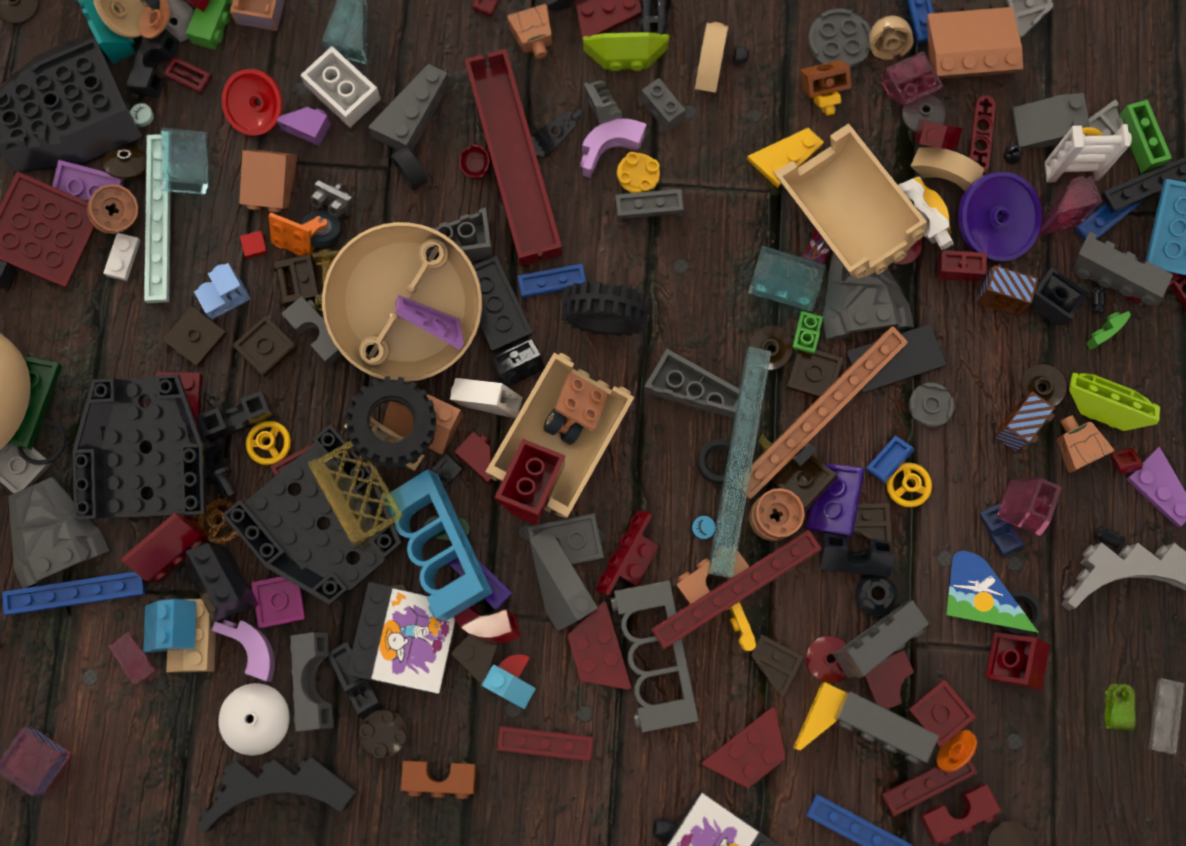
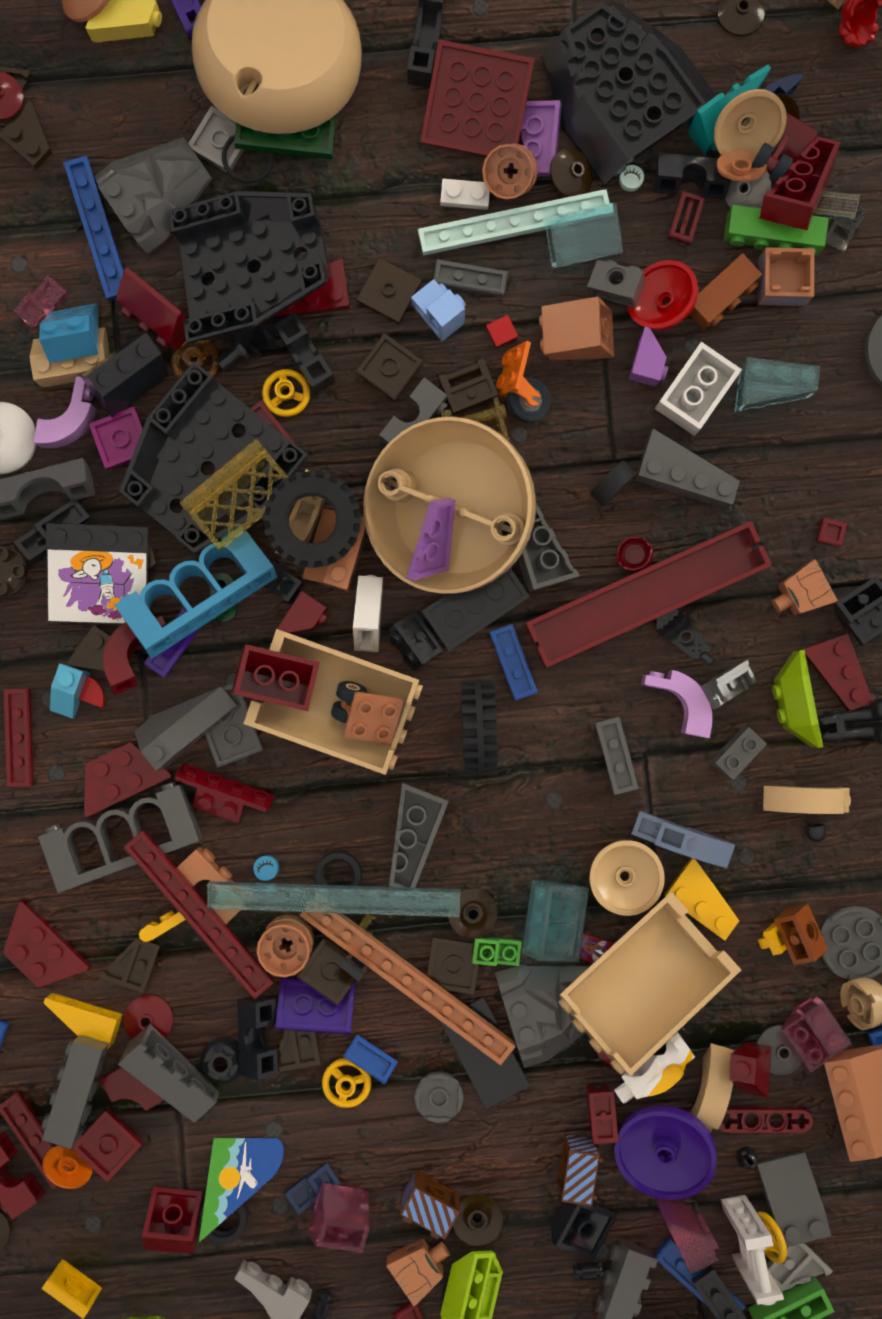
camera: 75 degrees right, 10 degrees up
(199, 263) = (471, 278): none -> dark grey tile
(243, 136) = (624, 293): none -> dark grey brick
(259, 51) = (725, 292): none -> dark orange brick
(333, 197) = (568, 408): flat silver hips -> none
(638, 172) = (653, 737): yellow dish -> none
(730, 161) = (683, 840): none -> sand blue slope
(757, 198) = (641, 887): none -> tan dish
(1070, 762) = (72, 1288): none -> yellow tile
(1112, 326) = (556, 1289): bright green slope -> none

